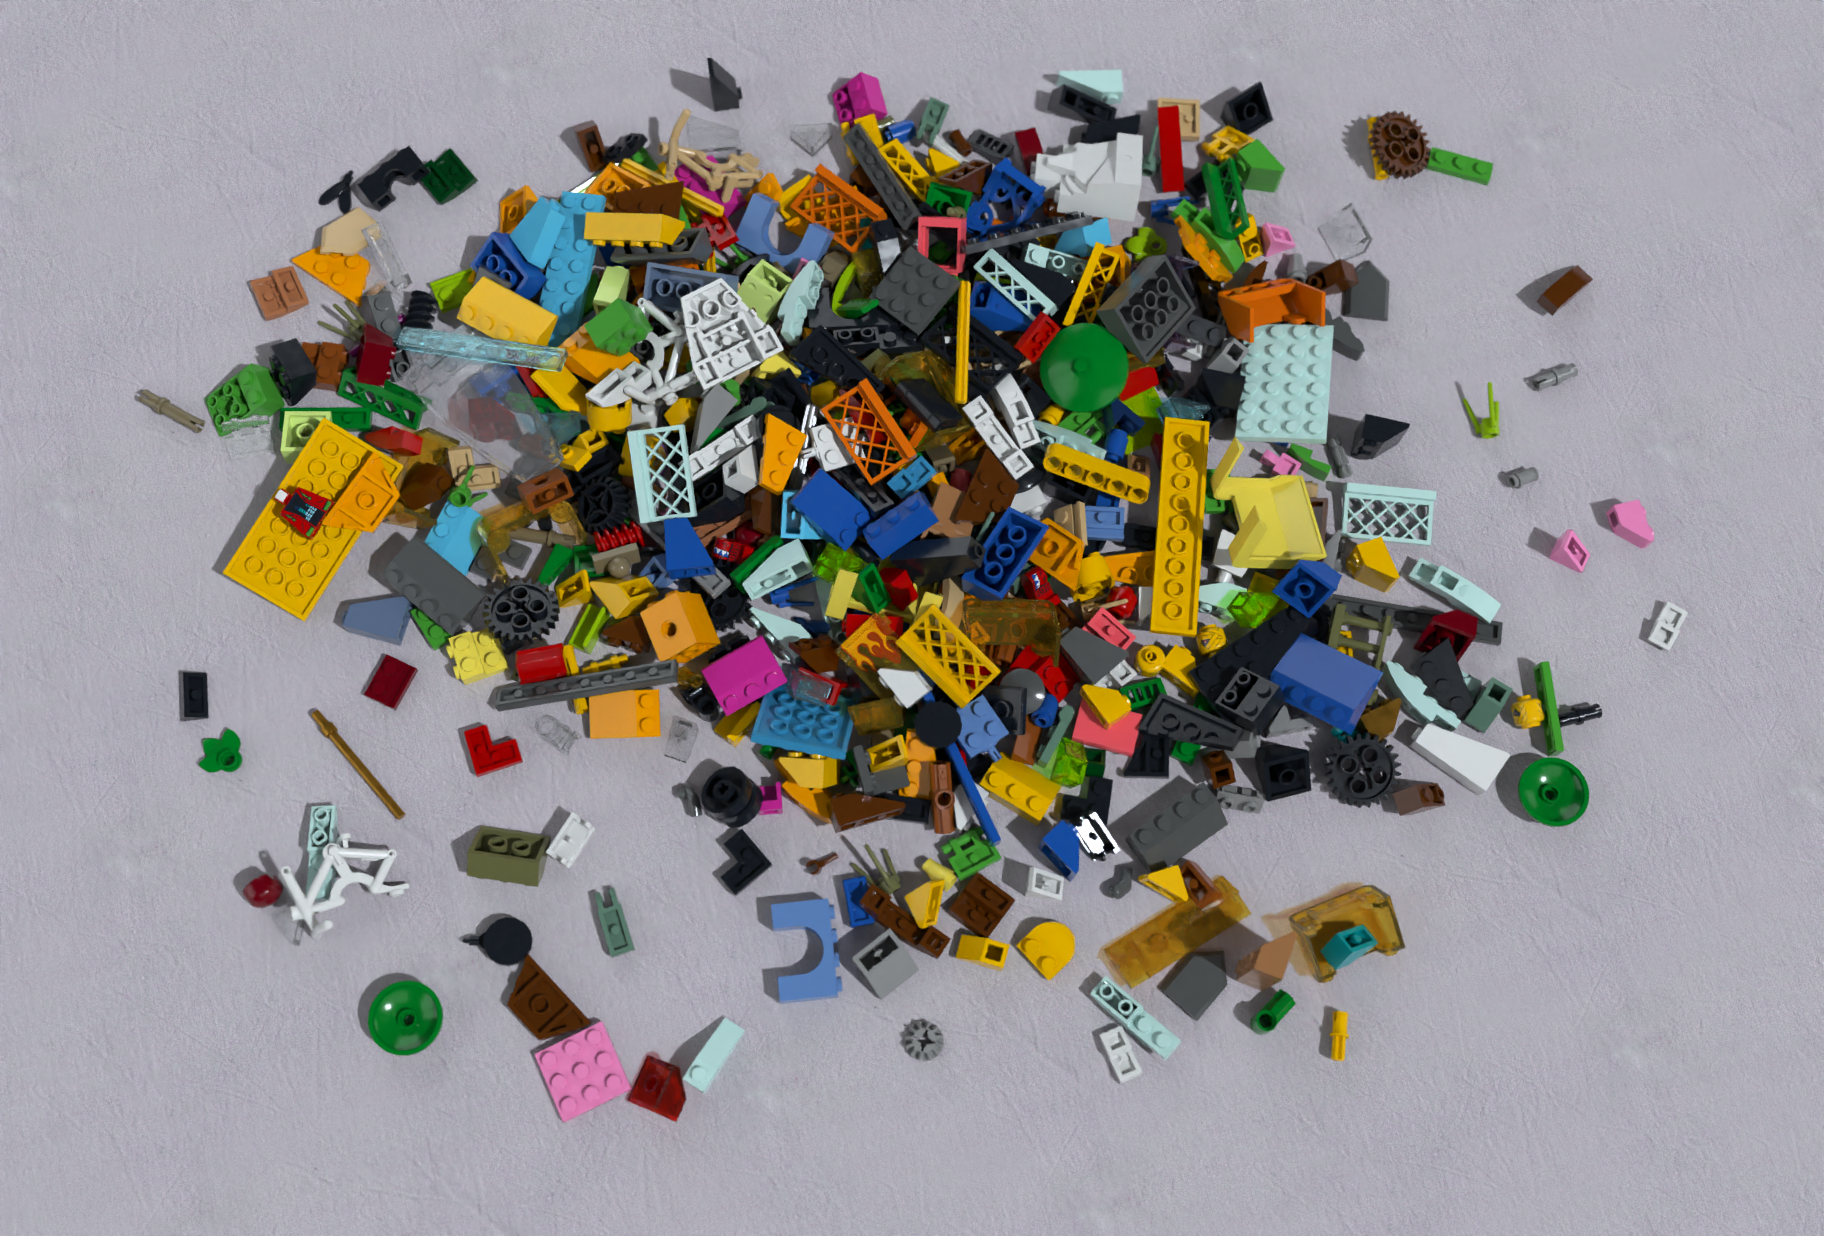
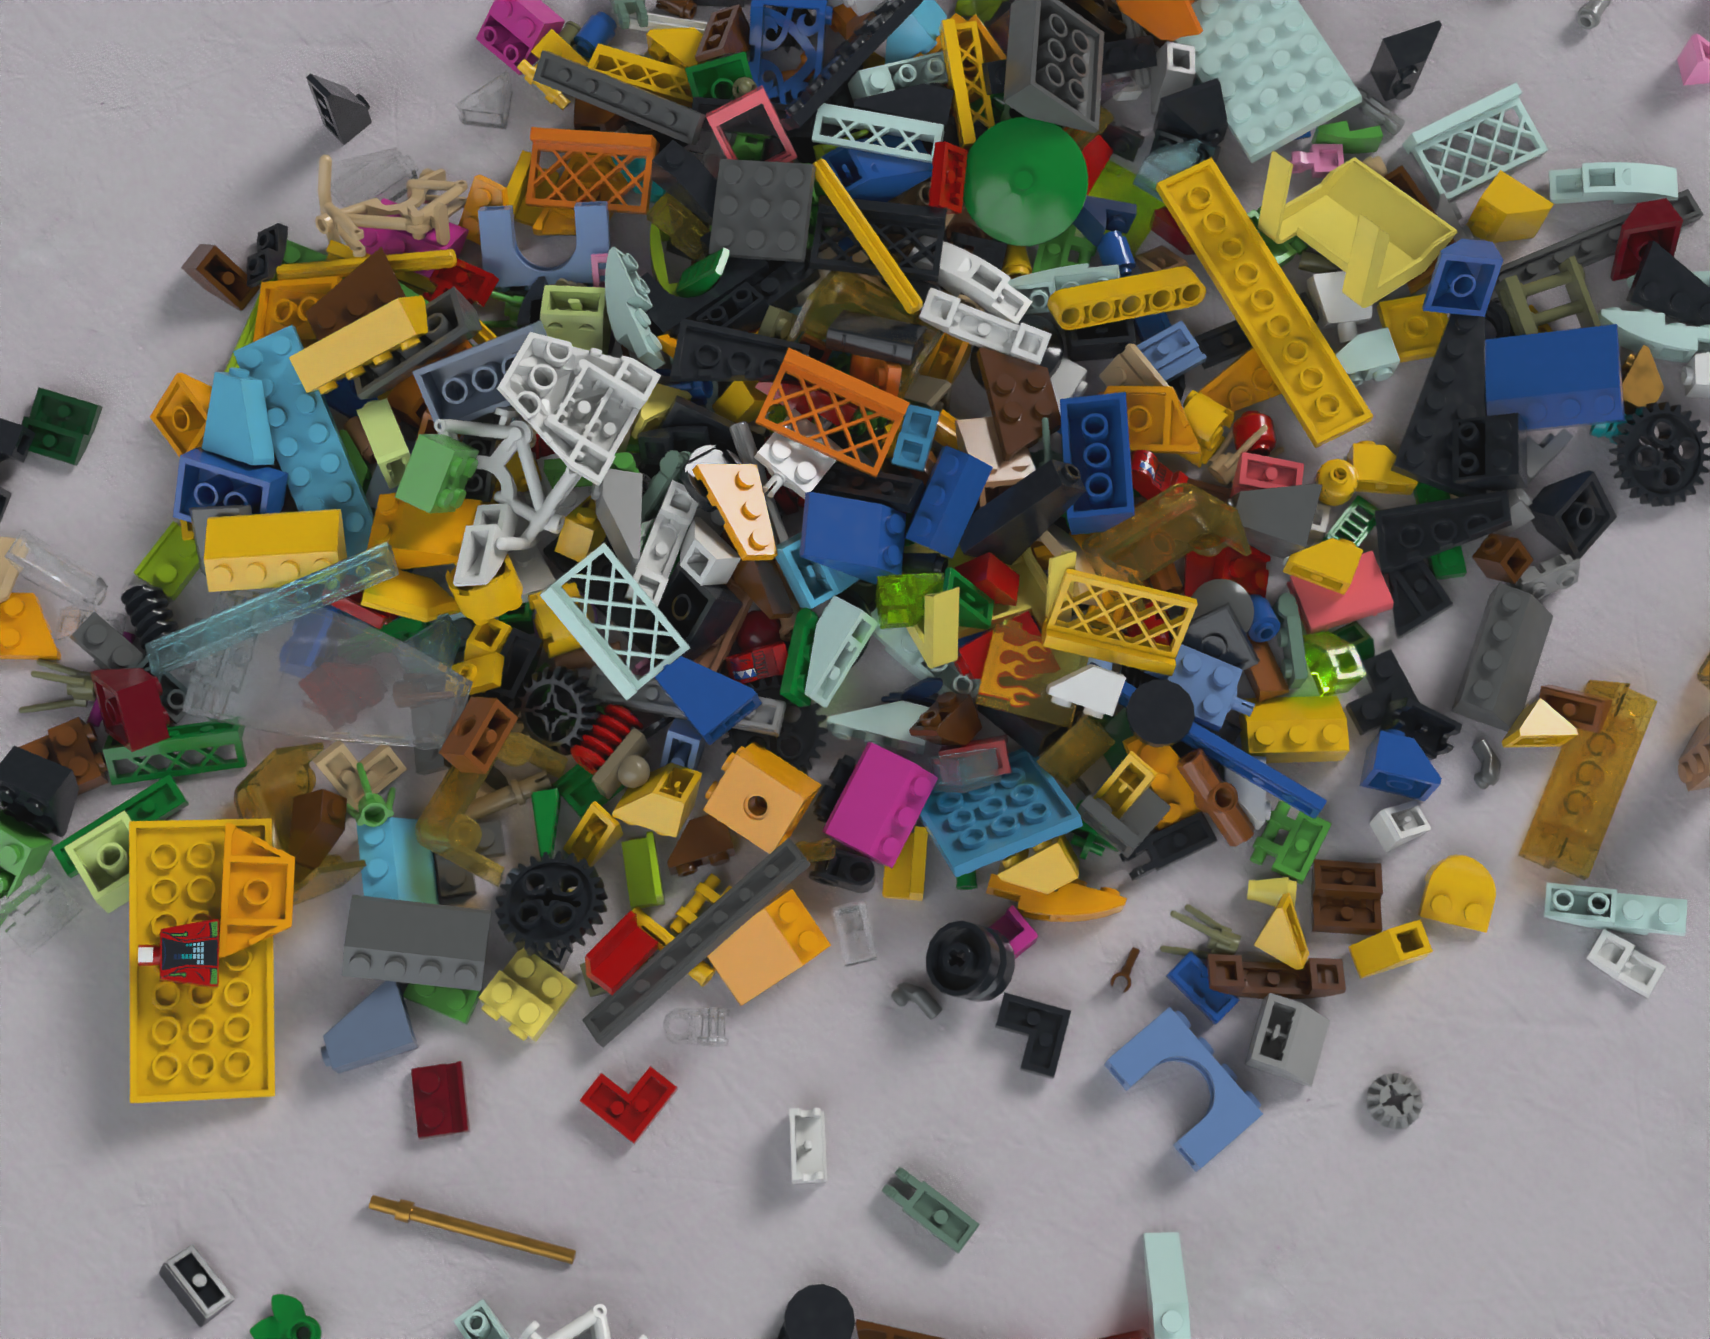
camera: 30 degrees left, 0 degrees up
(396, 441) = (239, 794): red slope -> none
(508, 856) = (744, 1215): olive slope -> none
(781, 594) = (851, 684): blue plant -> none
(833, 267) = (633, 238): dark tan slope -> none
(858, 810) = (1132, 876): reddish brown slope -> none
(960, 479) = (964, 406): coral cone -> none
(1143, 606) = (1284, 421): white slope -> none
(1197, 982) = (1649, 822): dark grey tile -> none
(1211, 640) = (1389, 415): yellow head -> none
(1252, 607) = (1411, 344): clear neon green slope -> none

